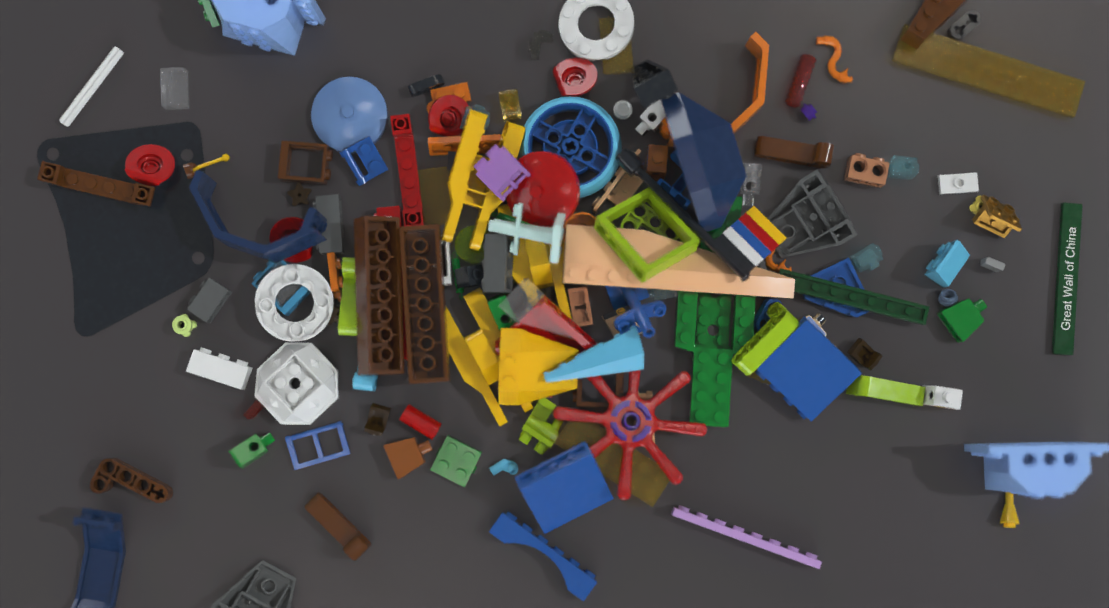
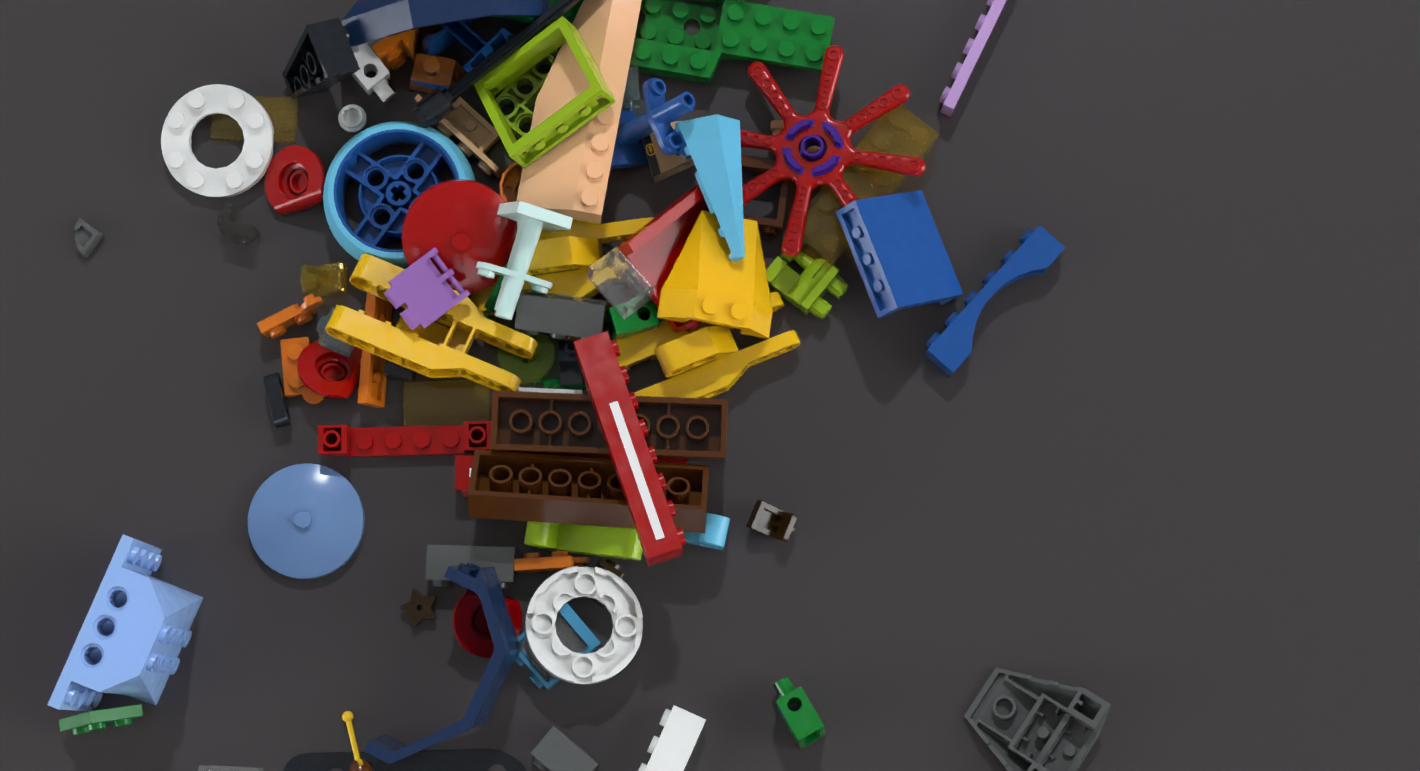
camera: 80 degrees left, 5 degrees down
(254, 409) = (738, 705): clear red tile -> none
(285, 162) = (367, 559): reddish brown window -> none
(289, 441) = (781, 619): blue window -> none
(317, 384) = (701, 669): white piece -> none
(338, 526) = (924, 594): reddish brown beam -> none
(370, 158) = (377, 495): blue plate -> none
(405, 317) = (628, 448): none -> red brick
(407, 455) = (829, 482): dark orange torso -> none
(420, 421) = (782, 458): red pin -> none
(456, 461) = (844, 413): green plate -> none
(476, 79) = (276, 324): none -> orange hinge
(505, 465) = (858, 342): medium azure arm -> none
(580, 306) = (636, 204): nougat brick -> none

